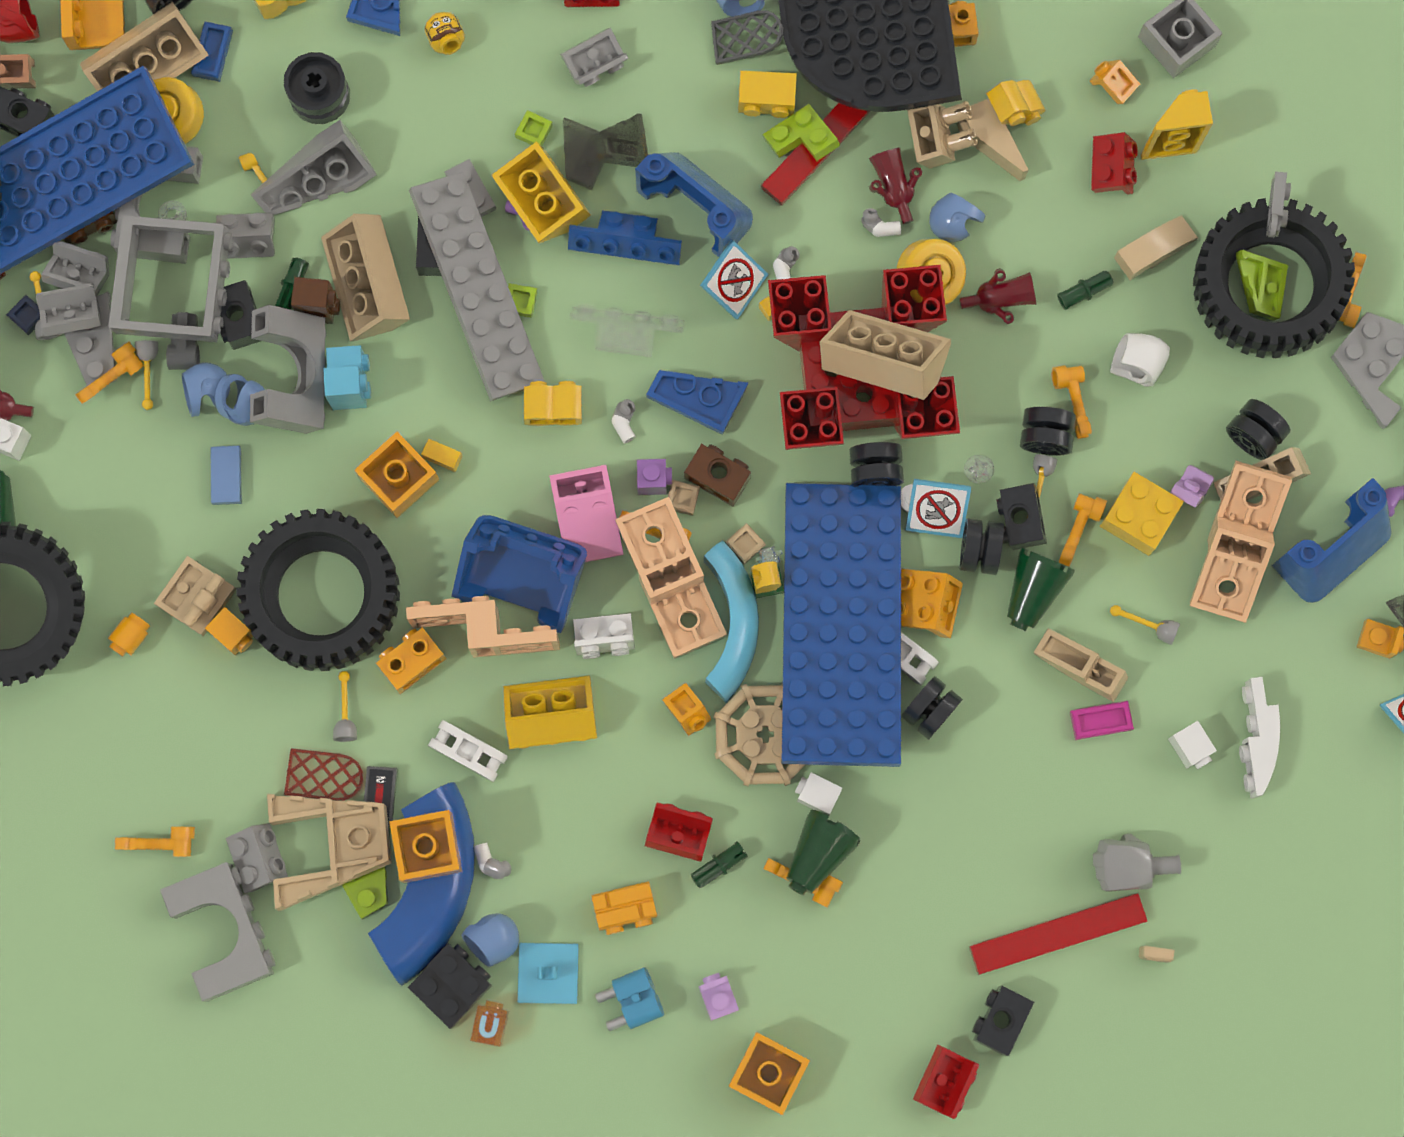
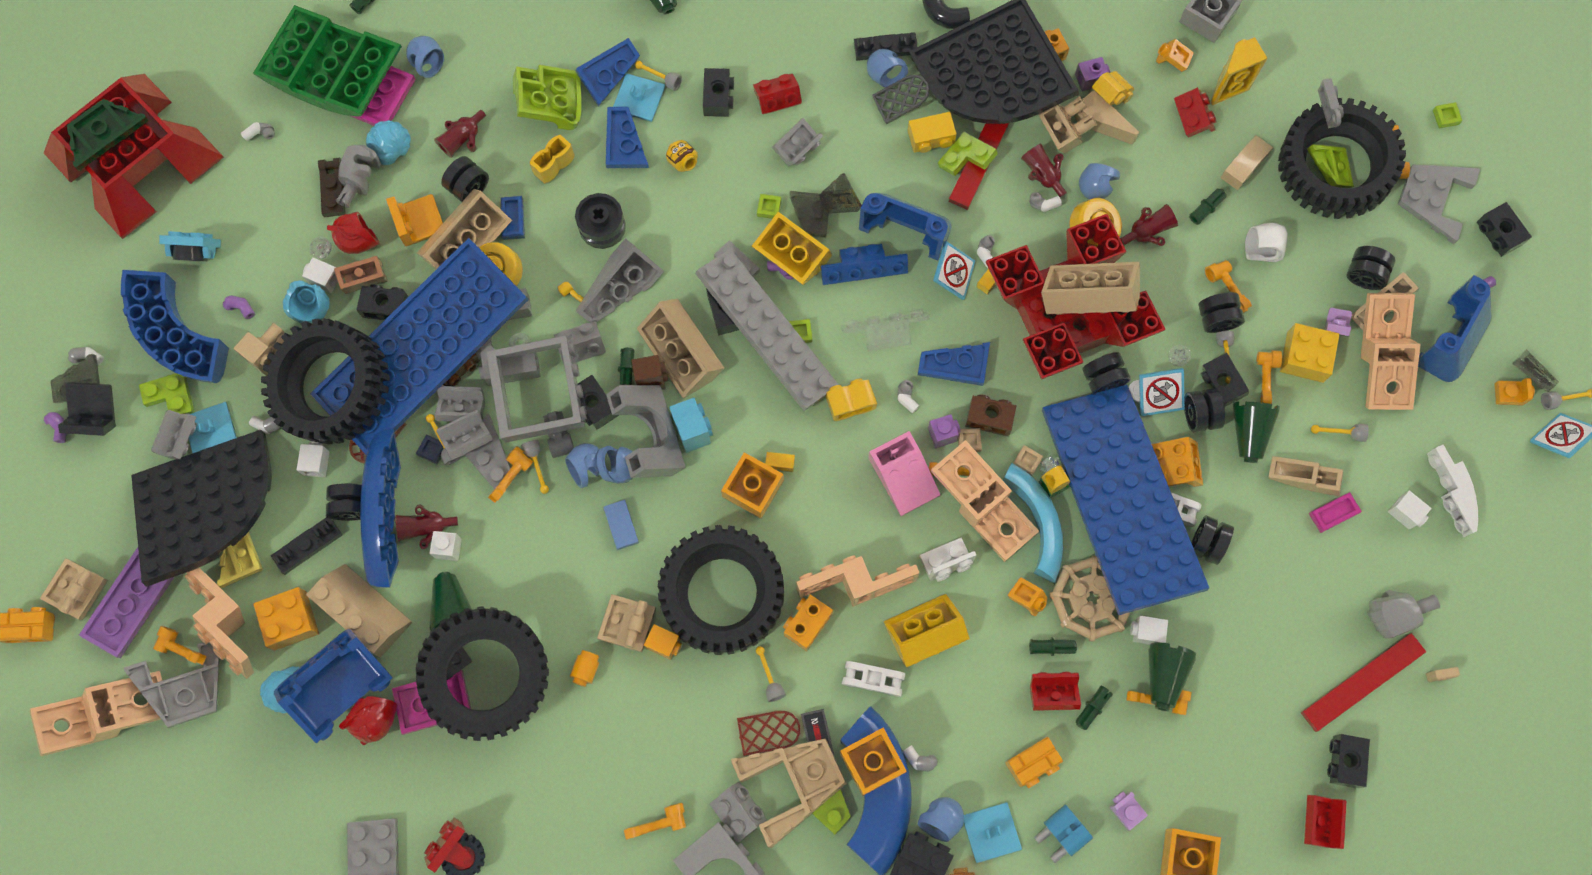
camera: 15 degrees left, 5 degrees down
(520, 568) = (871, 528): blue windscreen -> none
(695, 778) = (1052, 646): none -> dark green axle
(997, 70) = (1089, 72): none -> medium lavender brick

